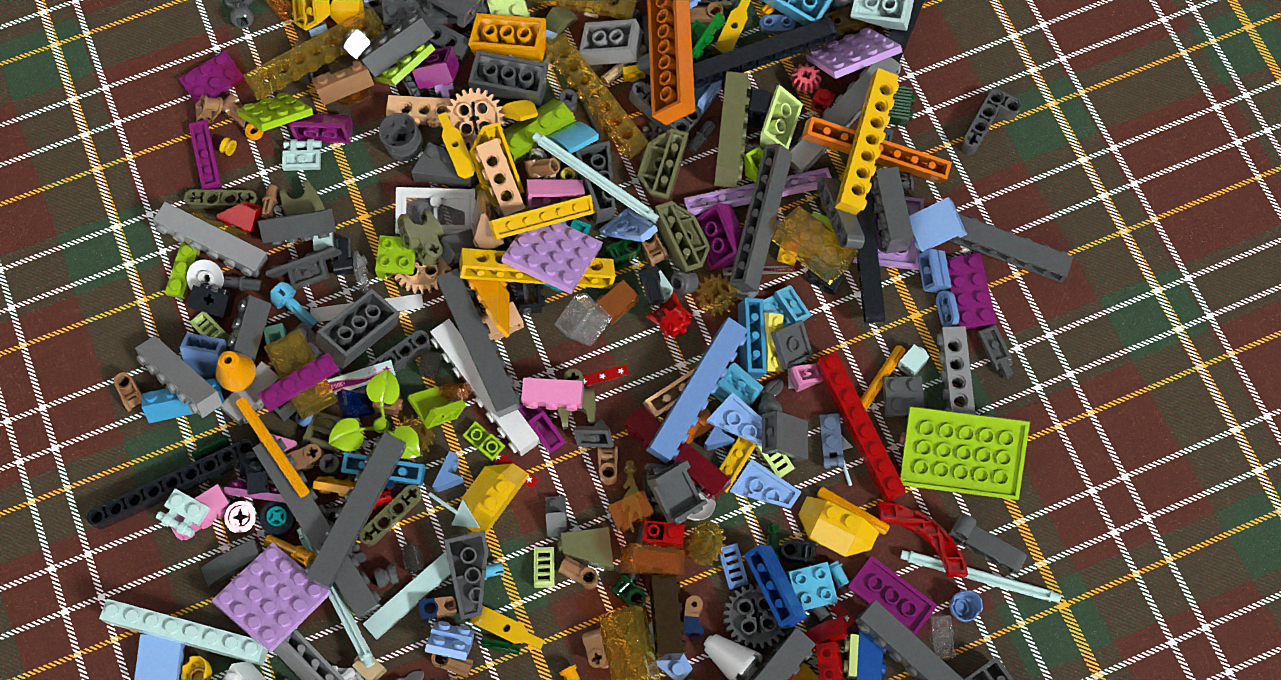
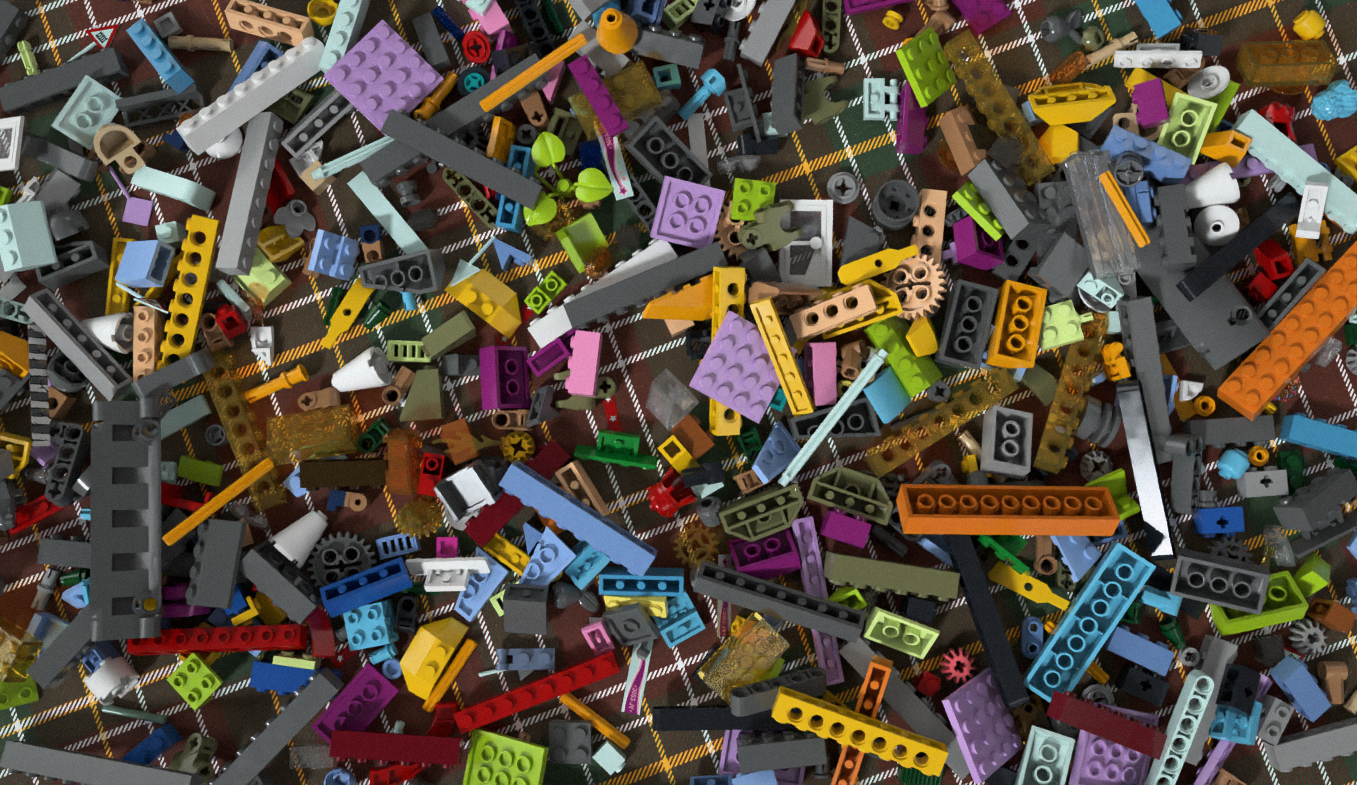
camera: 90 degrees right, 15 degrees up
(213, 548) = (448, 23): none -> clear blue axle
(378, 178) = (850, 182): none -> light grey gear
(409, 309) = (687, 213): none -> lavender plate
(507, 600) = (376, 314): none -> dark green cone
(528, 523) = (448, 336): none -> olive slope
(567, 474) = (504, 377): none -> magenta slope
(567, 608) = (364, 372): none -> white cone
(630, 368) = (617, 448): none -> green bracket
(630, 450) = (527, 443): none -> yellow gear
(634, 313) = (677, 455): none -> yellow slope
(692, 168) = (845, 529): none -> magenta brick
(732, 518) = (447, 547): none -> dark pink plate
(756, 511) = (447, 573): none -> white bracket
(817, 337) = (642, 652): none -> dark grey hand
(840, 343) = (636, 681): none -> sticker
(851, 565) = (391, 668): none -> medium blue tile
(923, 549) = (396, 747): none -> dark red brick

